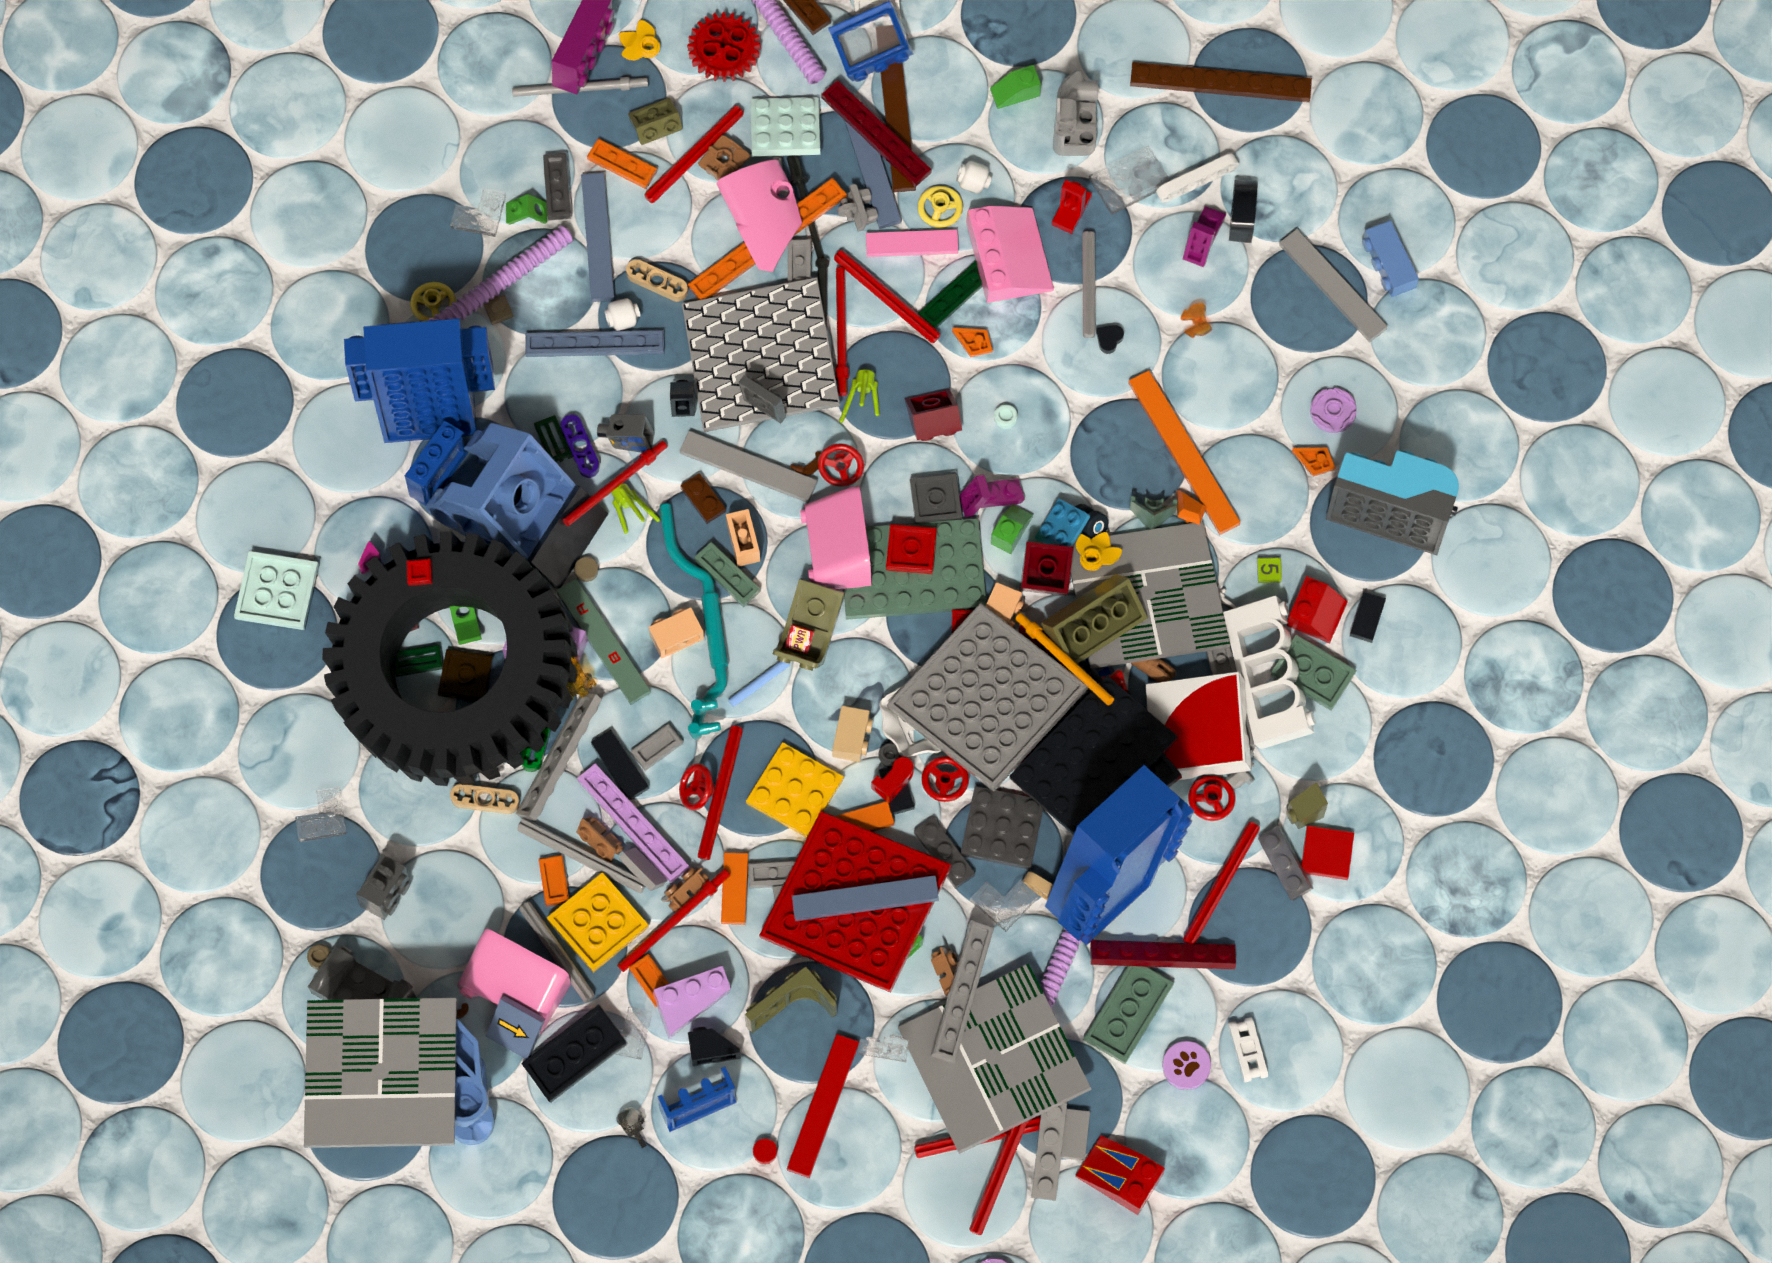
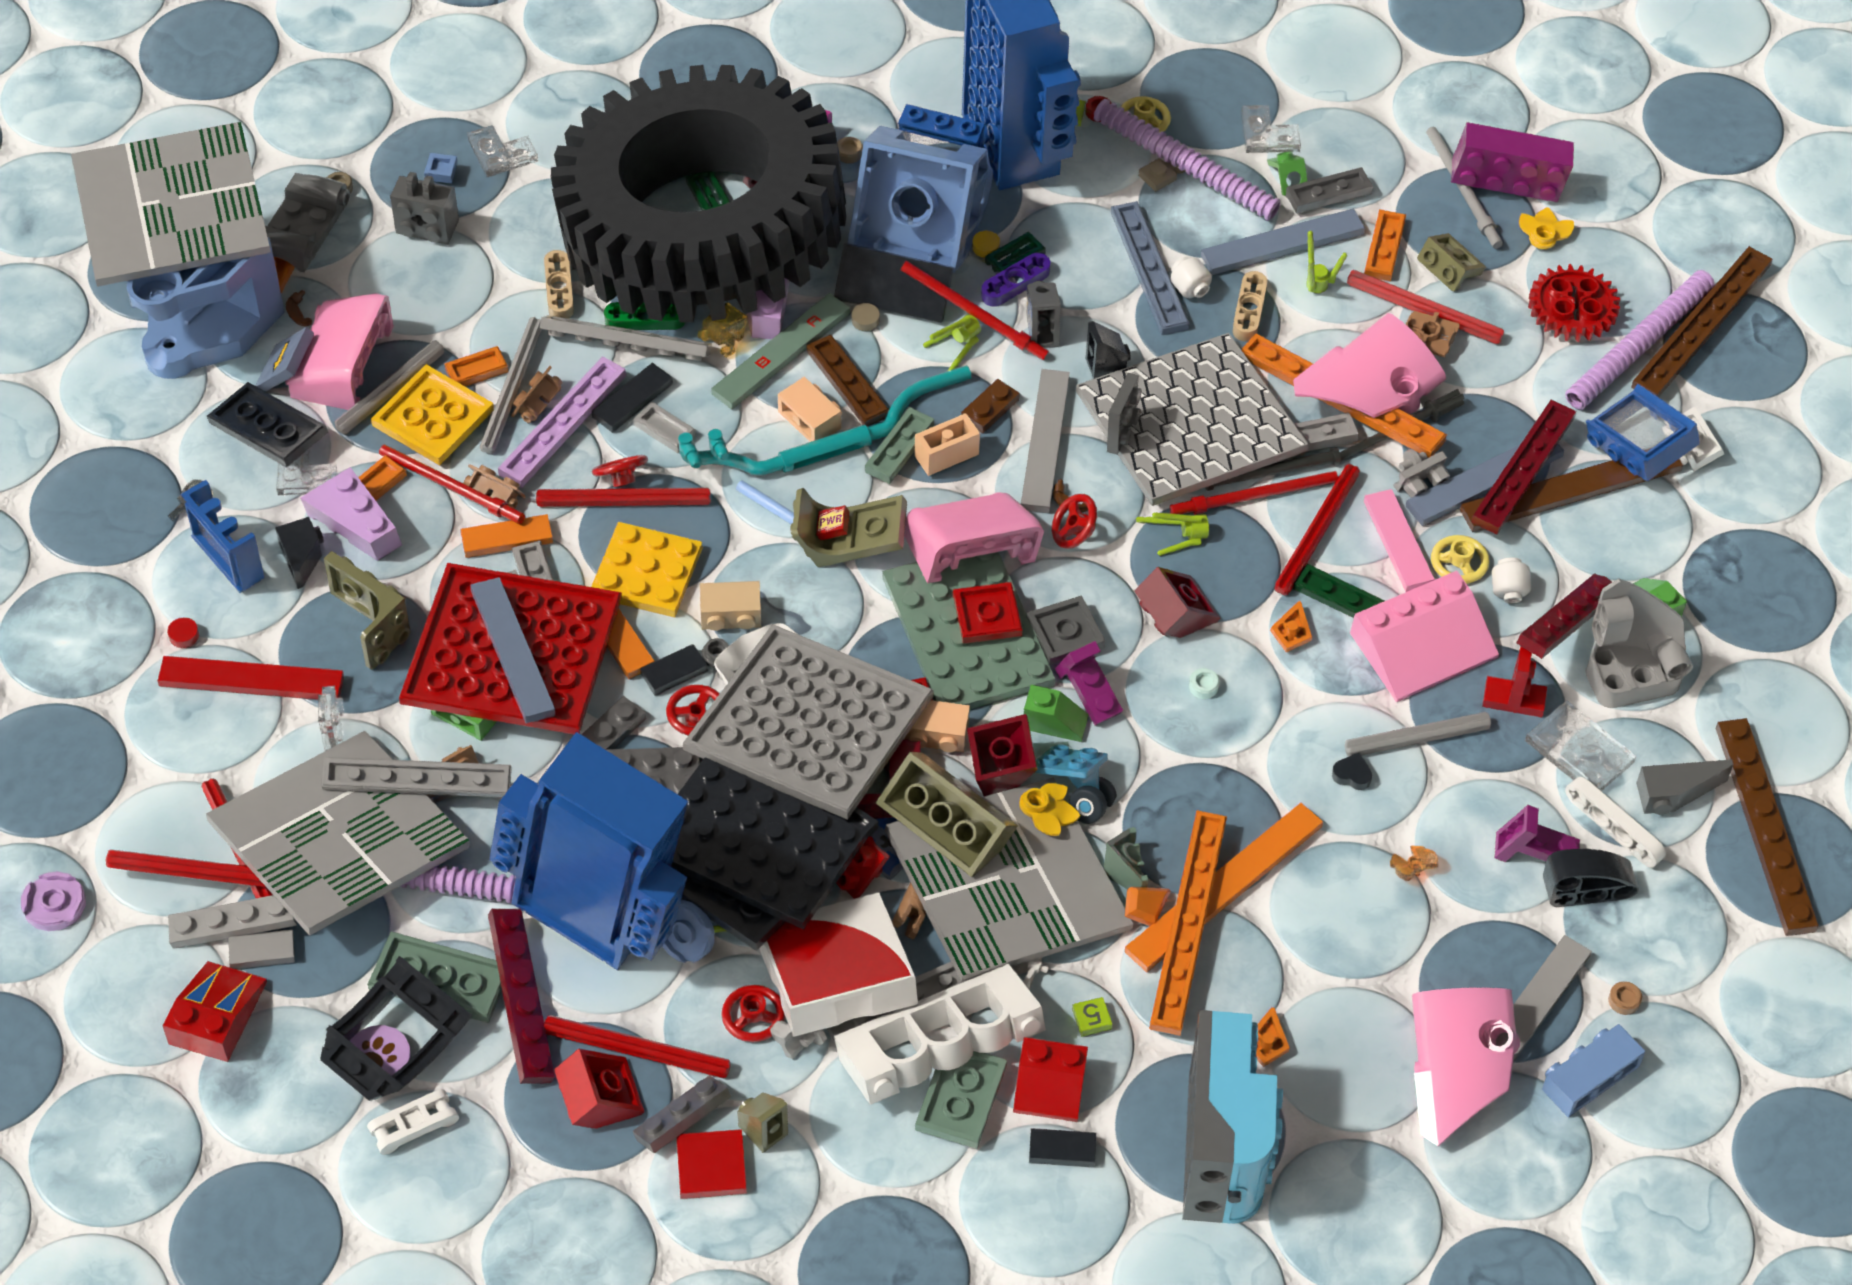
camera: 75 degrees right, 15 degrees down
(276, 590) = (757, 47): light aqua plate -> none
(329, 868) = (441, 167): none -> medium blue plate
(401, 536) = (850, 149): none -> tan tile
(419, 572) = (778, 116): red tile -> none
(643, 869) = (506, 439): light grey tile -> none
(644, 221) = (1318, 275): none -> lime plant
(647, 598) = (847, 380): none -> reddish brown tile
(785, 126) = (1495, 380): light aqua plate -> none
(894, 780) = (679, 656): red leg -> none
(1029, 147) = (1564, 617): none -> dark red plate
(1035, 632) = (874, 786): light orange bar -> none
(1160, 1017) = (419, 995): none -> black wedge
(1179, 129) = (1675, 785): none -> dark grey slope
(1212, 483) = (1188, 923): none -> orange tile
(1254, 916) = (598, 1089): none -> red slope
(1335, 220) = (1625, 998): none -> medium nougat tile
(1339, 413) = (1355, 1055): lavender tile -> none
(1369, 339) = (1458, 1055): none -> bright pink panel

